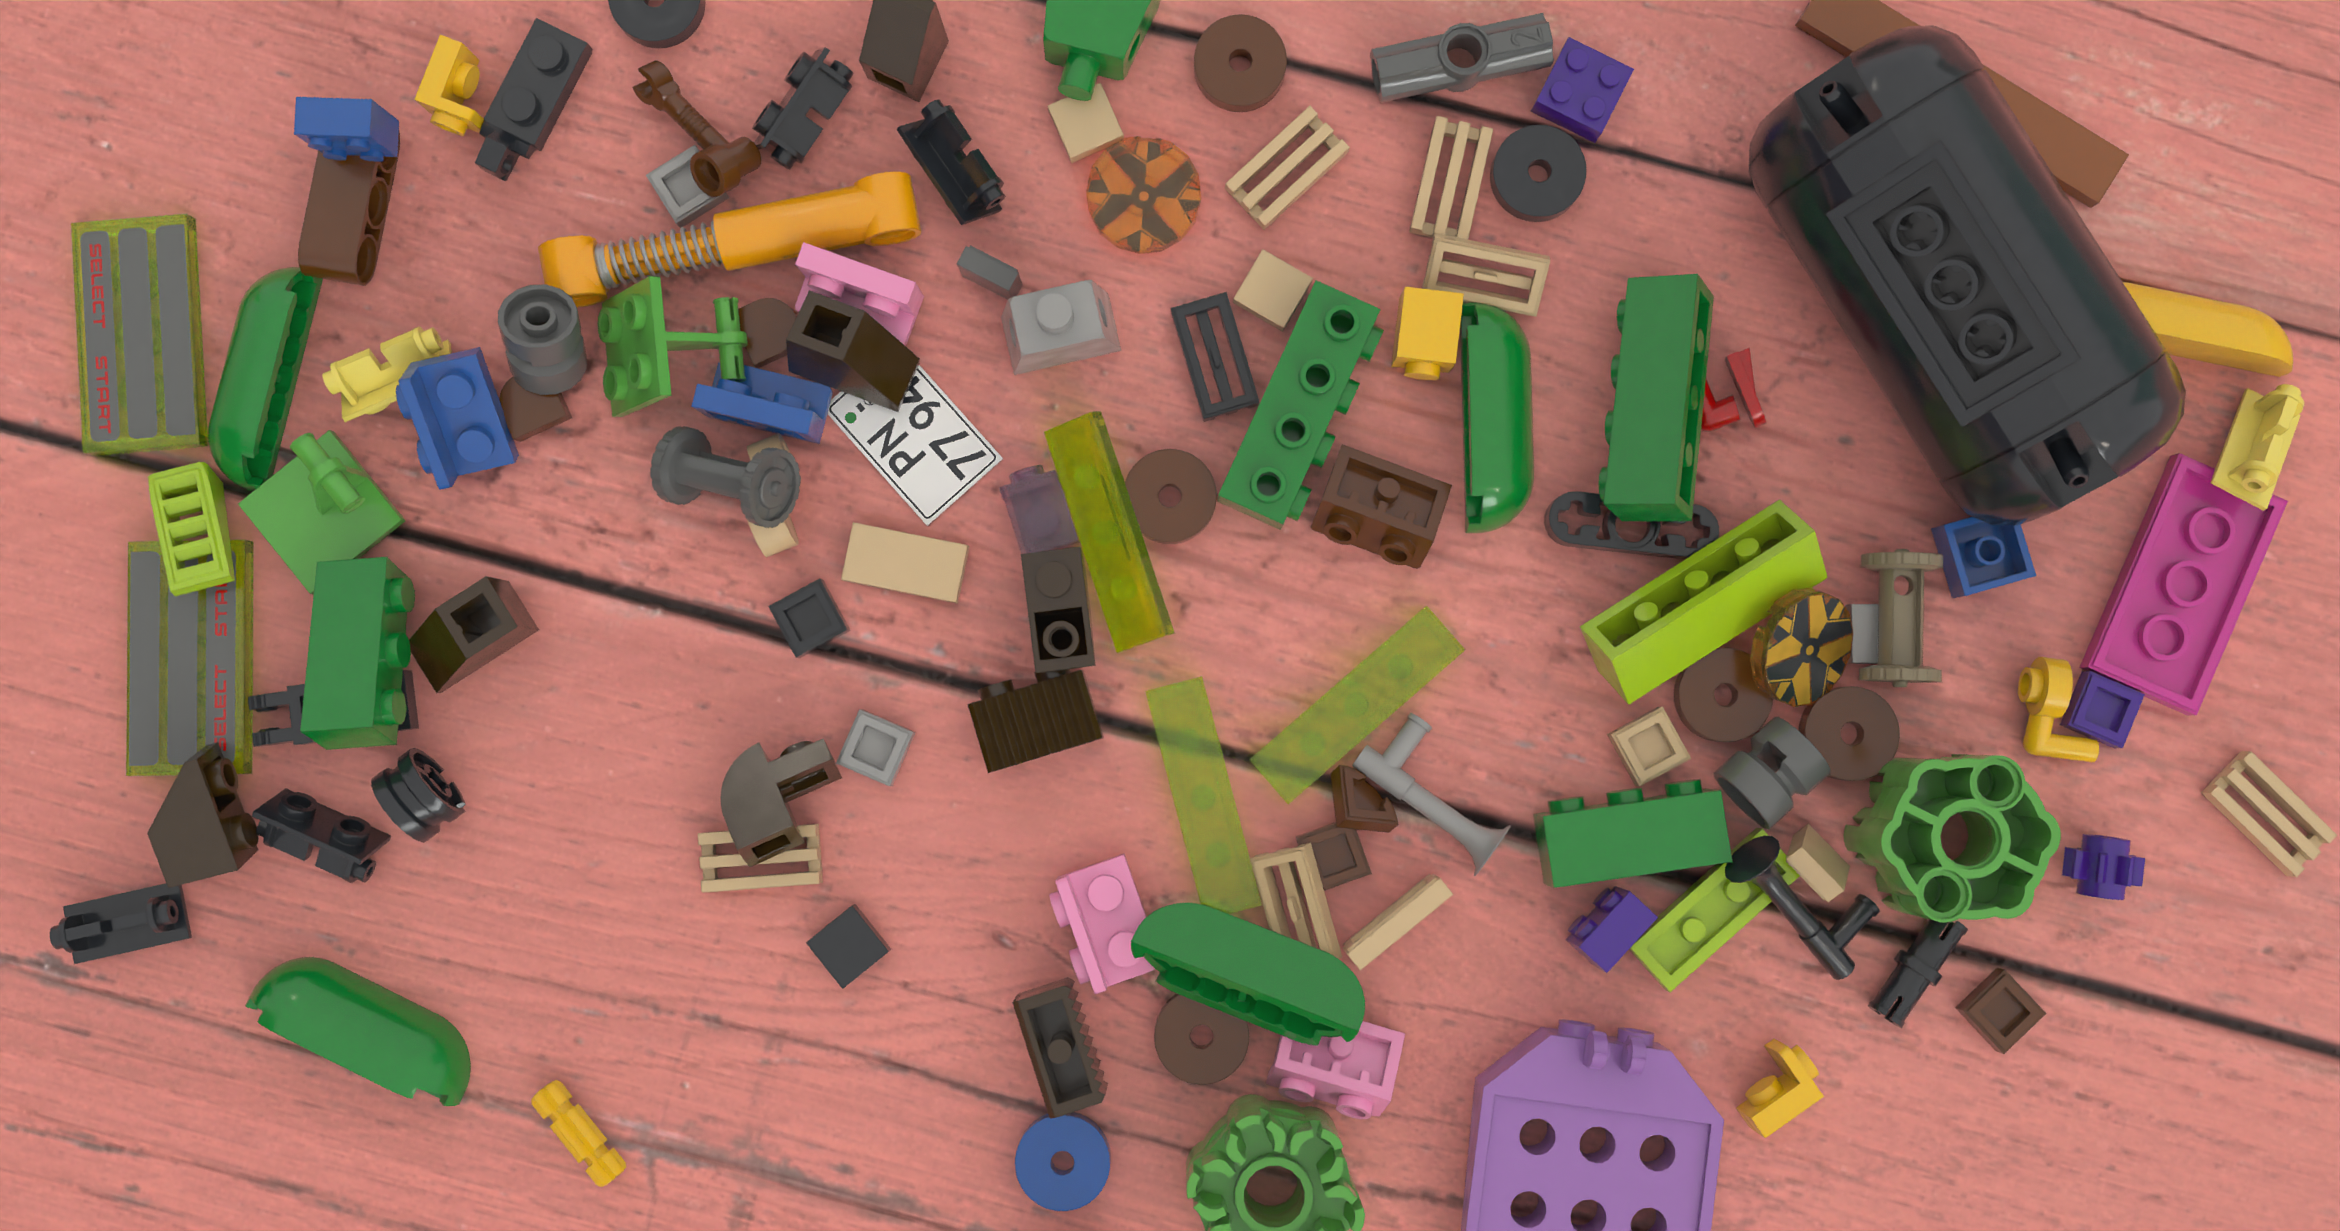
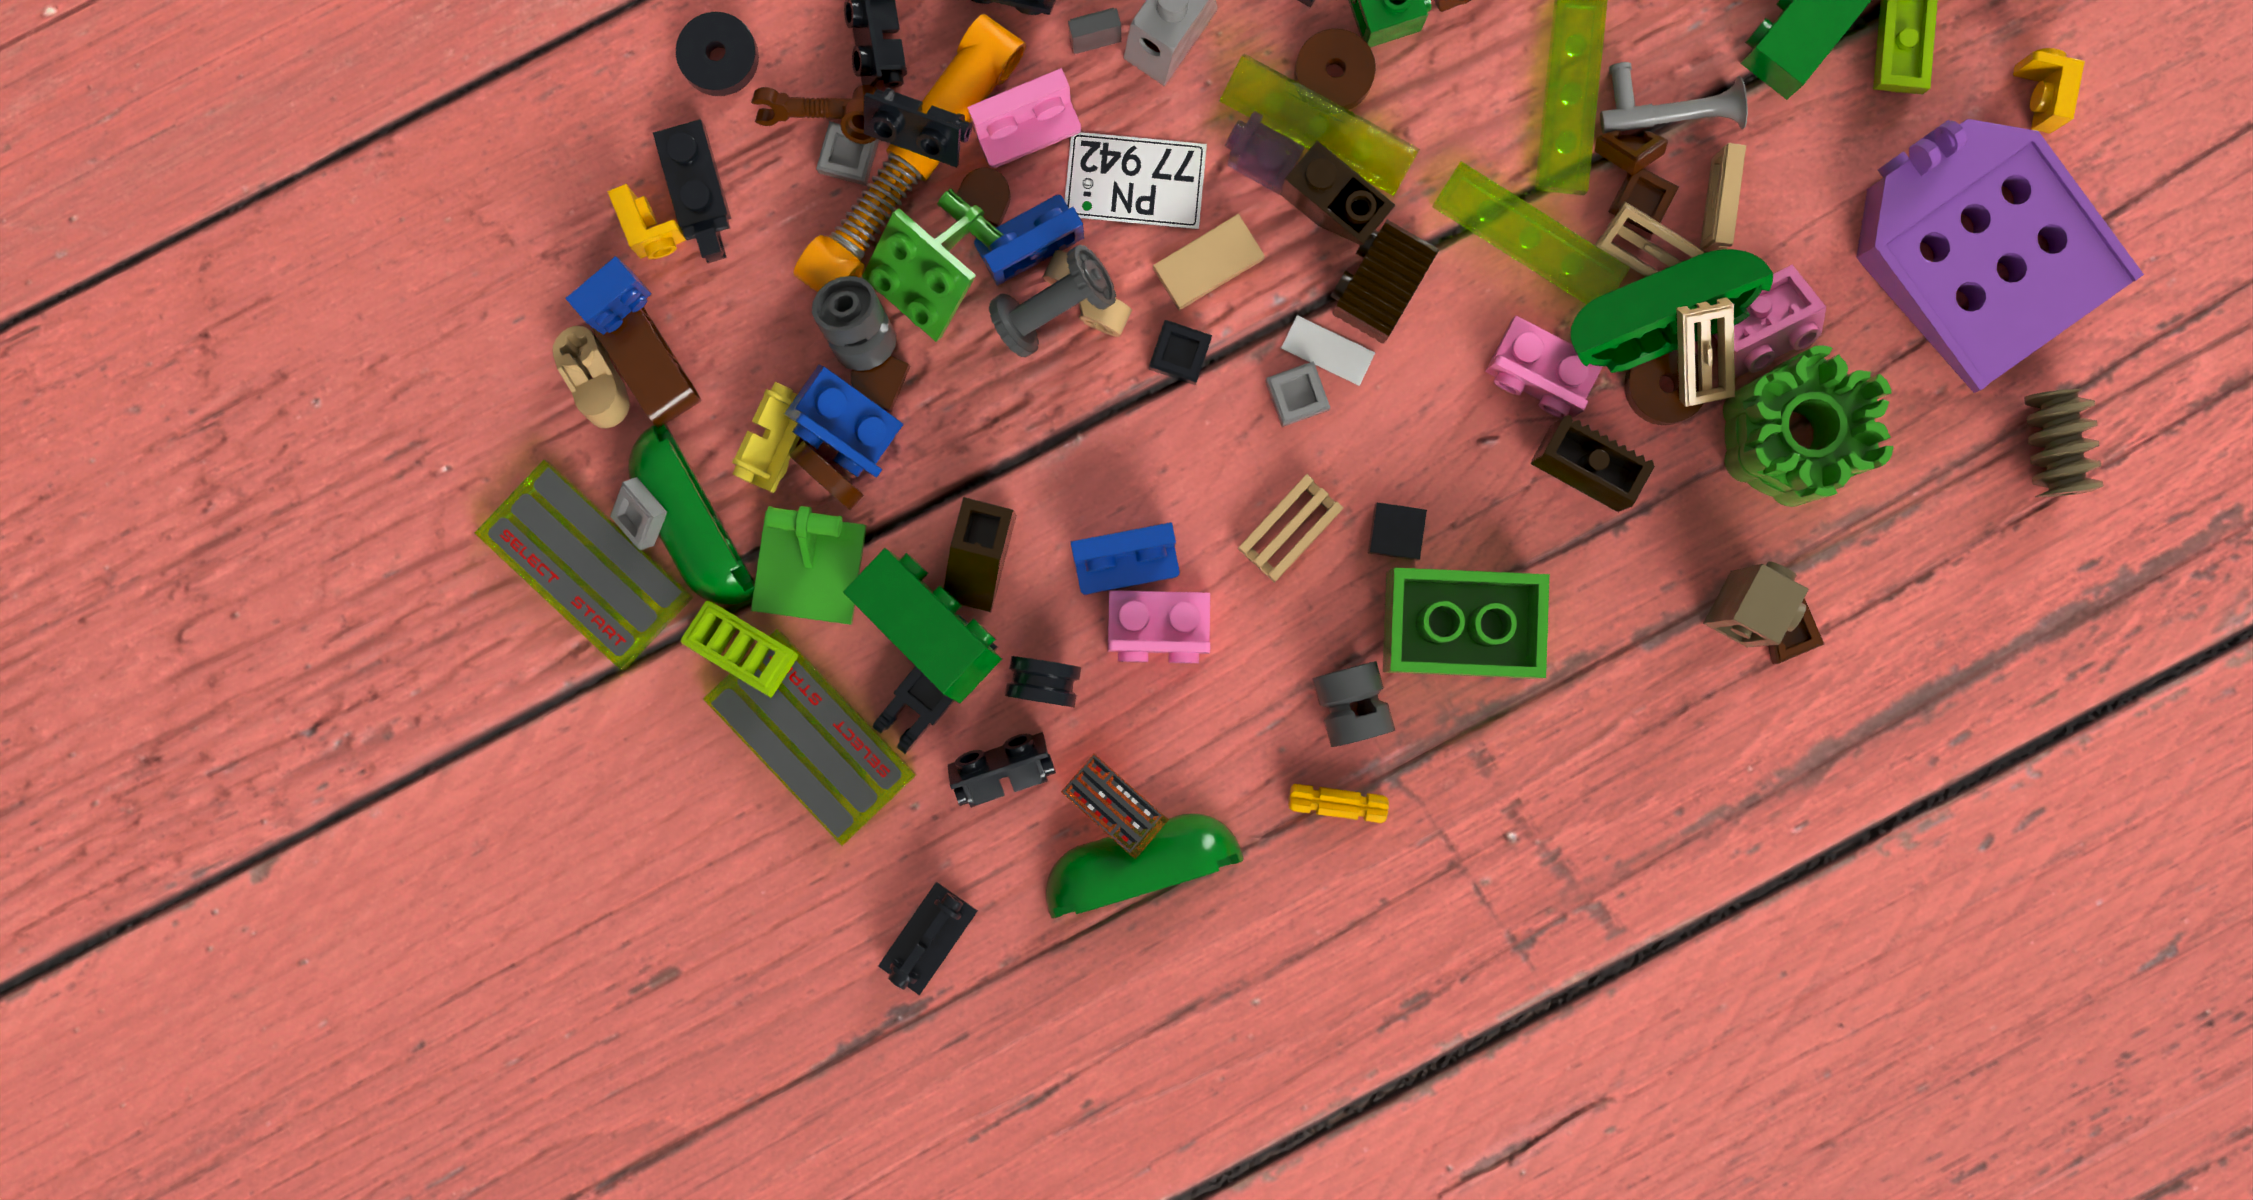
camera: 50 degrees left, 0 degrees up
(202, 822) = (920, 828): dark brown slope -> none
(217, 334) = (638, 514): none -> light grey tile
(283, 185) = (582, 355): none -> tan piece
(381, 959) = (1115, 806): none -> tile
(395, 451) = (826, 475): none -> reddish brown piece
(567, 838) = (1159, 624): none -> bright pink bracket
(590, 753) = (1125, 558): none -> blue bracket
(673, 1043) = (1348, 686): none -> dark grey wheel
(735, 194) = (901, 123): none -> black hinge
(759, 791) = (1263, 486): dark brown brick -> none
(820, 1083) = (1466, 623): none -> bright green brick
(849, 352) = (1054, 157): dark brown slope -> none
(940, 733) = (1328, 350): none -> white sticker
(1063, 1188) = (1676, 534): blue piece -> none
(1264, 1013) = (1686, 352): none -> tan tile
(1610, 927) = (1858, 81): dark purple piece -> none

